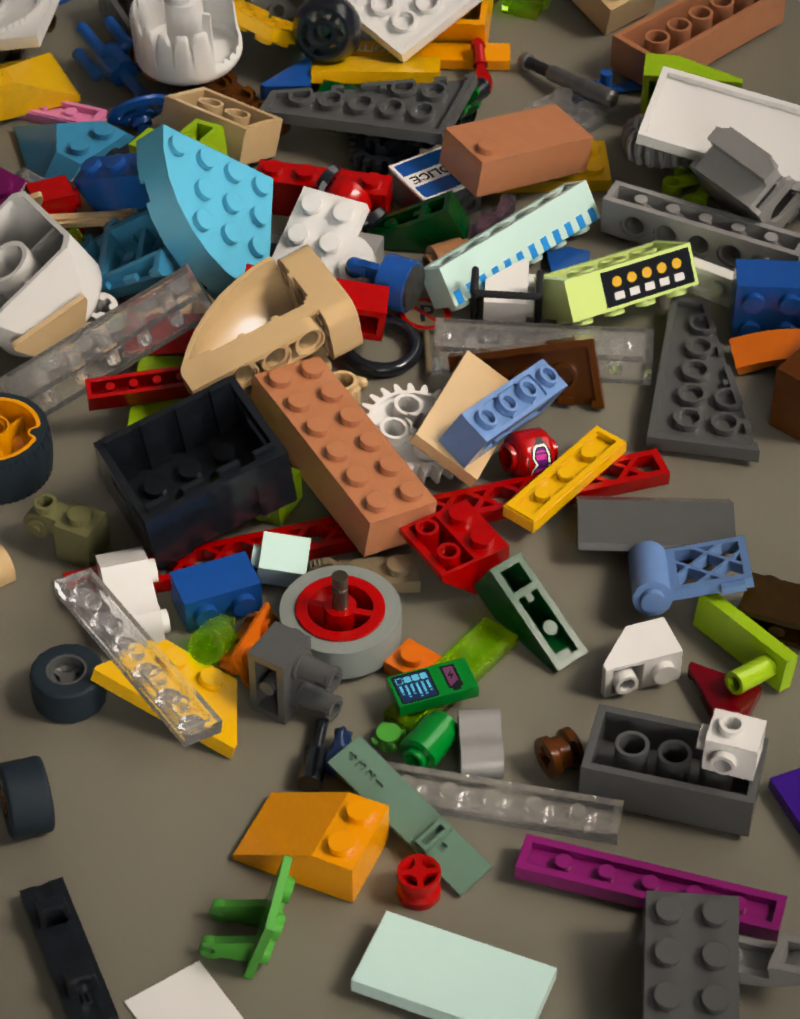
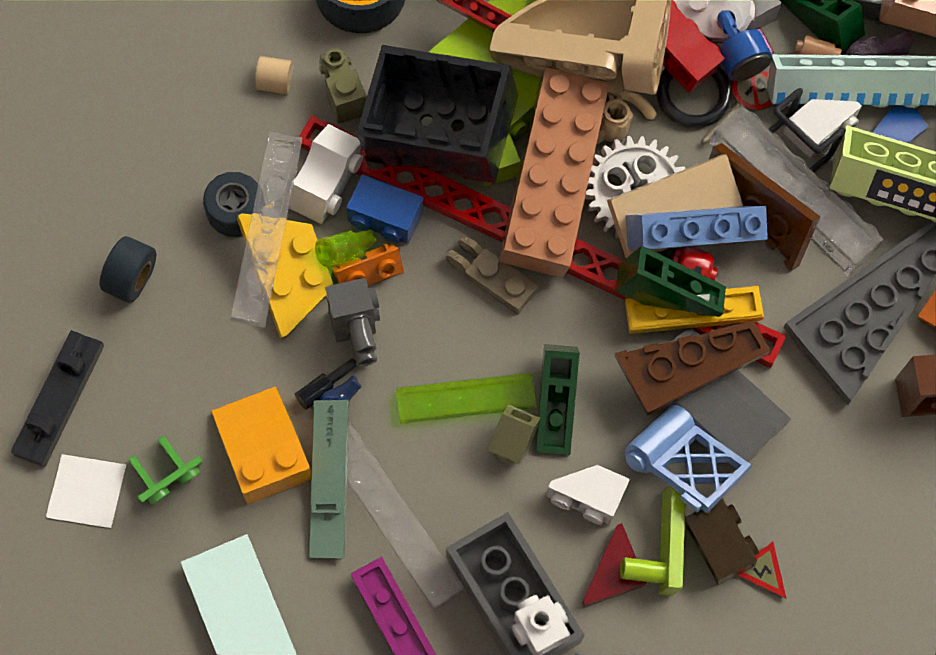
camera: 40 degrees right, 25 degrees up
(280, 558) = (443, 221): light aqua brick -> none
(347, 614) = (431, 300): wheel -> none
(388, 737) = (382, 408): bright green piece -> none
(409, 657) = (451, 365): orange plate -> none
(426, 874) = (284, 523): red wheel -> none
(429, 740) = (396, 436): green brick -> none
(432, 686) = (437, 398): tile -> none
(457, 544) = (558, 306): red slope -> none
(480, 742) = (425, 465): light grey axle -> none
(526, 464) = (667, 284): none -> dark green slope
(530, 662) = (513, 435): none -> olive brick
(559, 752) = (465, 515): reddish brown wheel -> none
(612, 505) = (683, 366): none -> reddish brown wing

